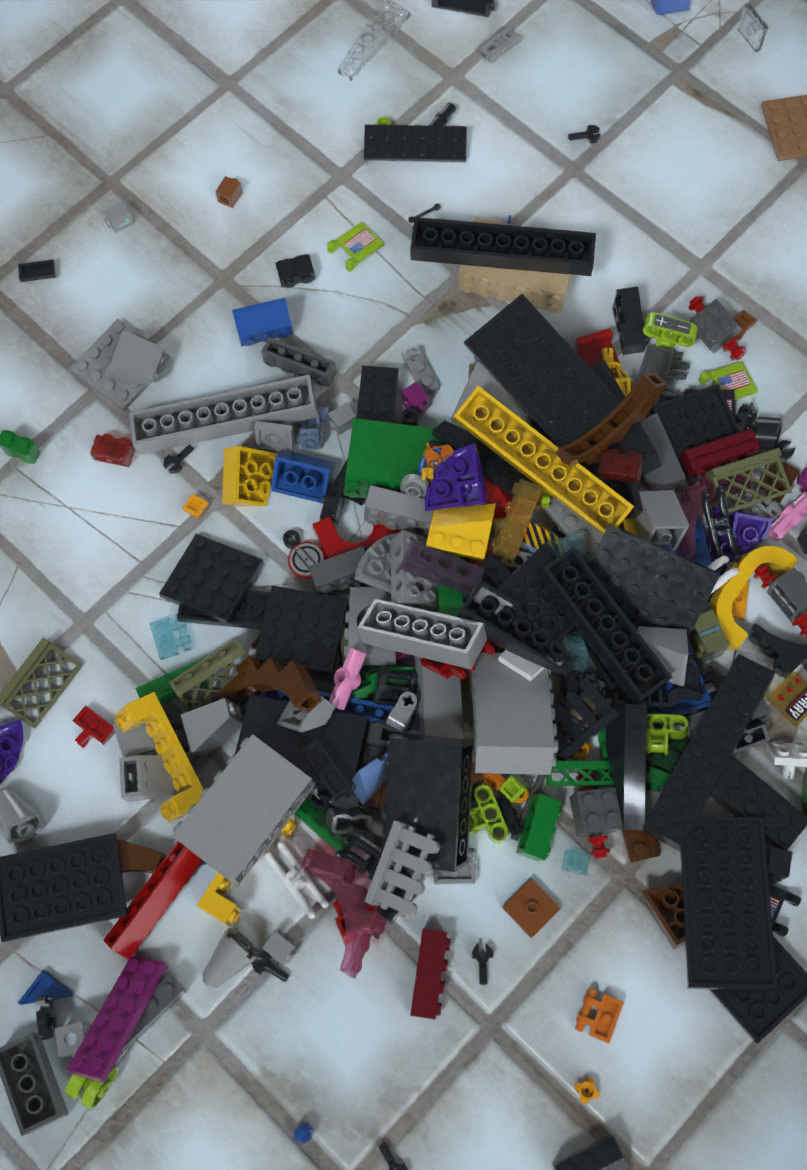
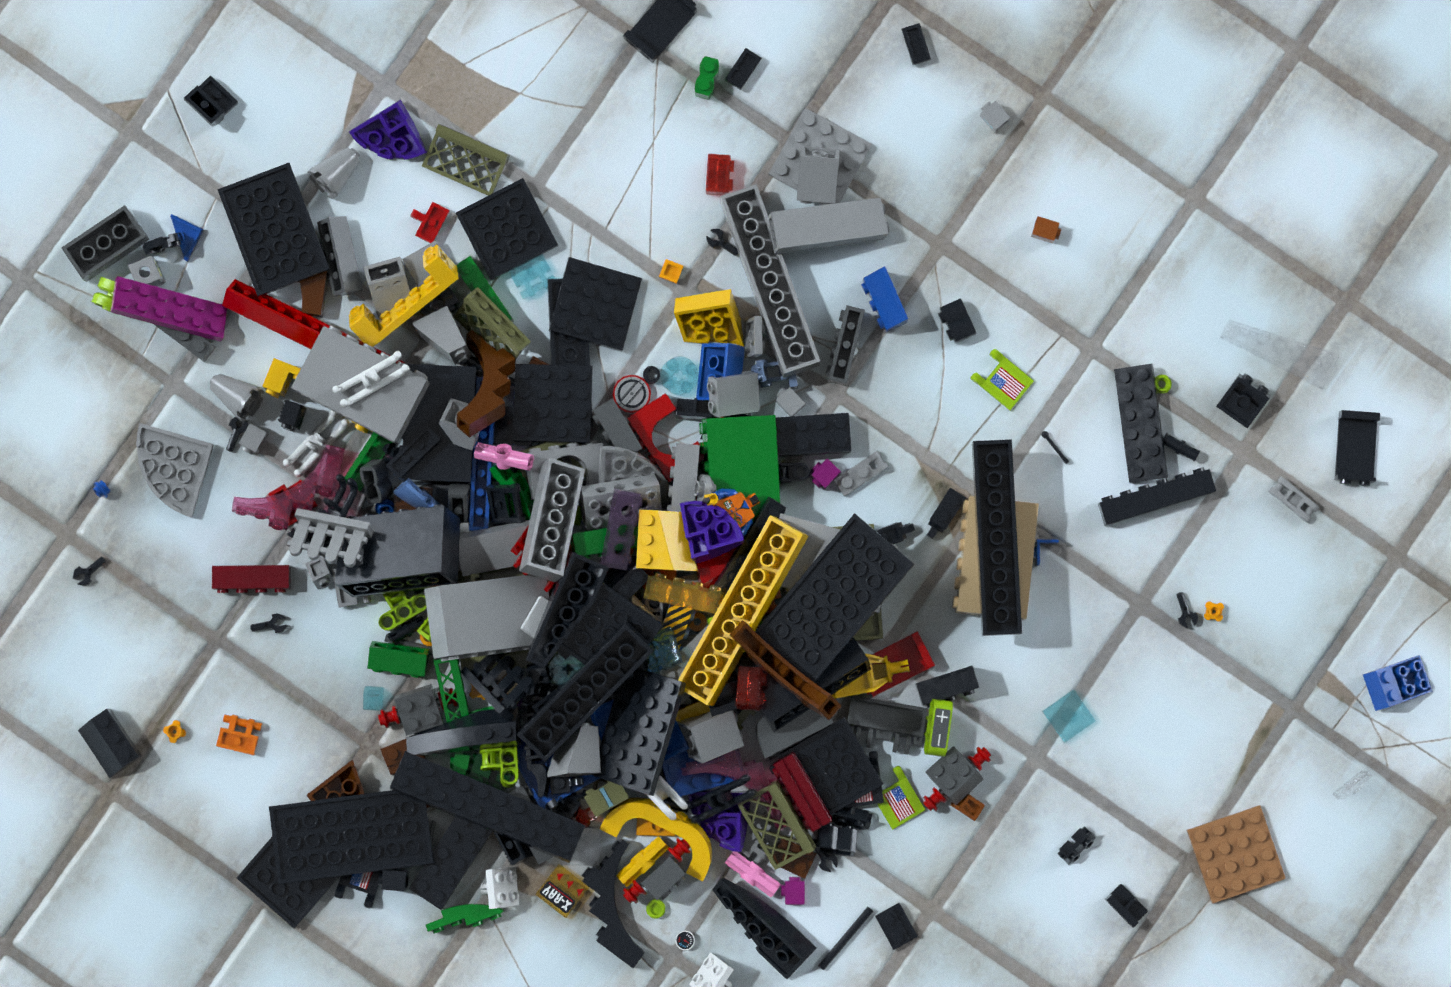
camera: 80 degrees right, 15 degrees up
(19, 416) = (743, 69): none -> black plate
(89, 823) = (339, 255): none -> dark grey brick
(117, 653) = (506, 229): none -> black plate
(183, 358) = (827, 225): none -> light grey brick
(240, 789) = (371, 380): none -> white piece
(262, 899) = (292, 415): none -> black brick
(292, 1045) = (173, 466): none -> light grey plate
(293, 504) = (675, 365): none -> clear light blue plate
(325, 461) = (733, 394): none -> light grey panel
(378, 818) = (379, 506): none -> blue plate
(401, 714) = (479, 513): light grey piece -> none
(409, 65) = (1244, 400): none -> black plate
(435, 898) = (319, 573): none -> light grey bracket
(468, 306) = (945, 512): none -> black hinge
(482, 140) = (1156, 497): none -> black brick
(531, 908) = (324, 662): dark orange plate -> none
(588, 113) = (1210, 615): none -> light orange plate
(667, 234) = (1068, 716): none -> clear light blue plate
(722, 665) = (583, 818): none -> clear red plate
(772, 615) = (642, 861): none -> yellow piece
(782, 237) = (1083, 840): none -> black hinge

